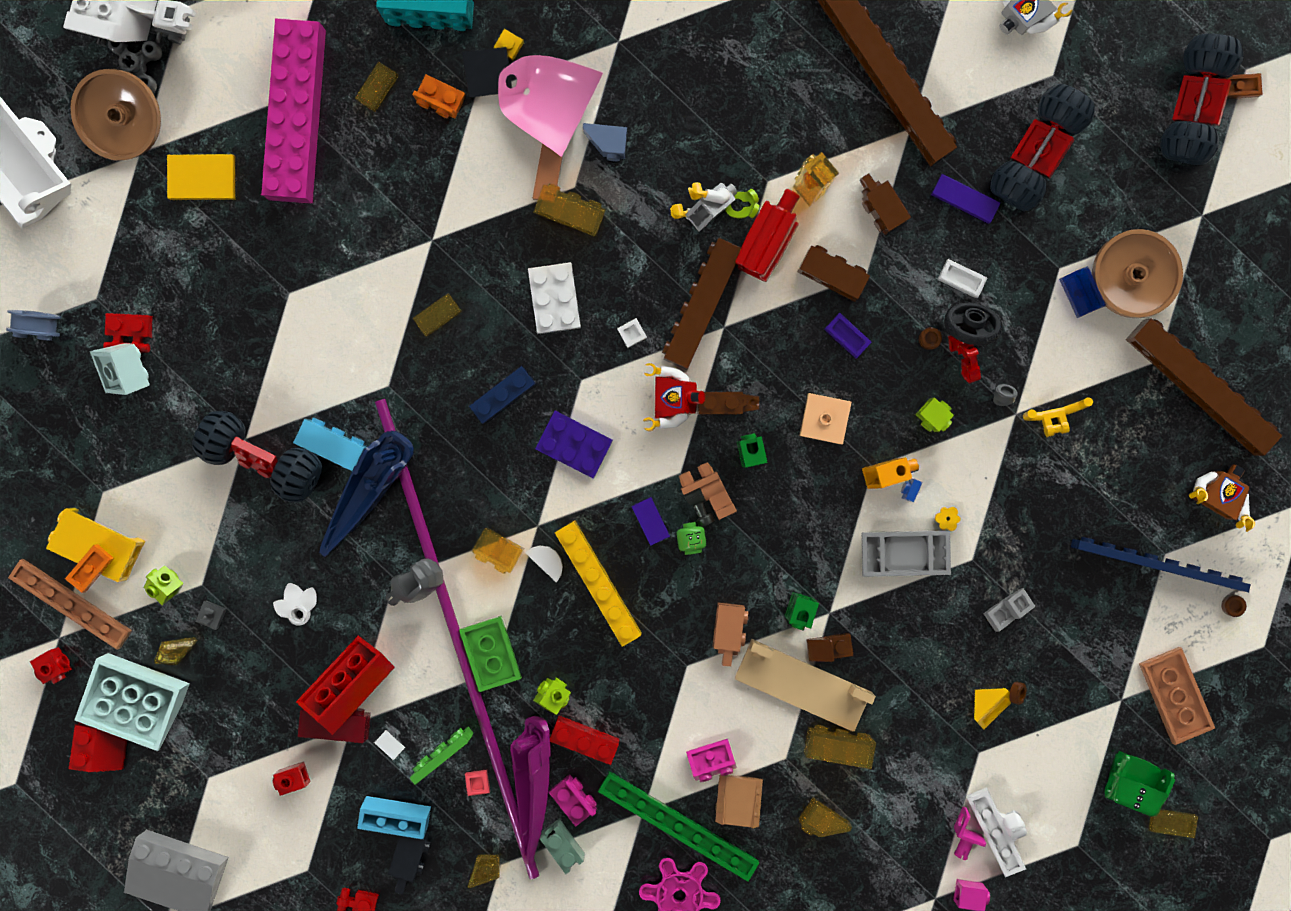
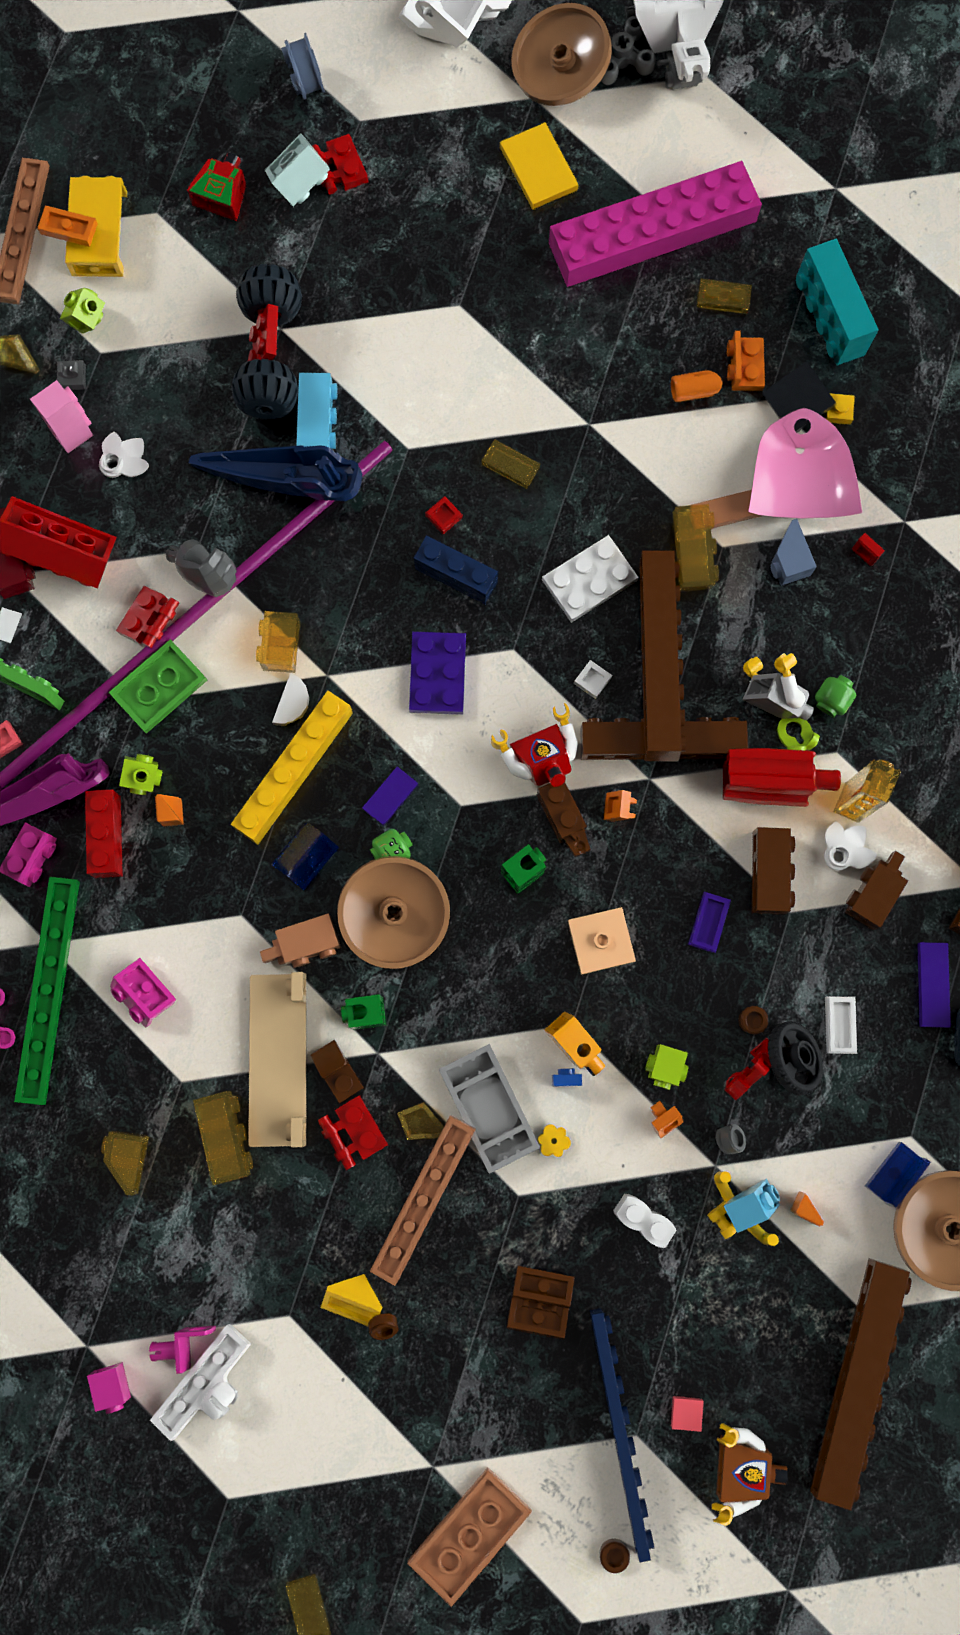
camera: 70 degrees right, 10 degrees down
(105, 434) = (219, 187): none -> red torso
(248, 637) = (63, 415): none -> bright pink brick
(430, 642) = (142, 615): none -> red plate
(440, 145) = (695, 385): none -> orange arm
(454, 383) = (444, 515): none -> red tile
(587, 685) = (169, 810): none -> orange slope
(629, 81) = (868, 549): none -> red tile
(640, 276) = (660, 656): none -> reddish brown brick
(666, 602) = (305, 855): none -> clear blue panel
(705, 489) = (456, 840): nougat hips -> none
(728, 162) = (835, 696): none -> bright green head
(735, 360) = (618, 806): none -> orange tile
(739, 801) = (107, 1047): medium nougat slope -> none
(756, 559) = (400, 937): none -> medium nougat dish
(839, 207) = (849, 845): none -> white plate
(877, 647) = (361, 1128): none -> red plate
(893, 604) = (420, 1122): none -> clear yellow piece
(946, 627) = (422, 1200): none -> nougat tile
(971, 434) = (665, 1120): none -> orange tile
(1009, 609) = (479, 1269): light grey slope -> none
(1028, 485) = (649, 1223): none -> white brick
(1051, 578) = (540, 1302): none -> reddish brown slope
(1057, 403) = (753, 1205): none -> medium azure slope
(1076, 368) = (805, 1209): none -> orange slope
(1138, 784) = (337, 1537): green piece -> none
(1168, 514) = (687, 1413): none -> coral tile

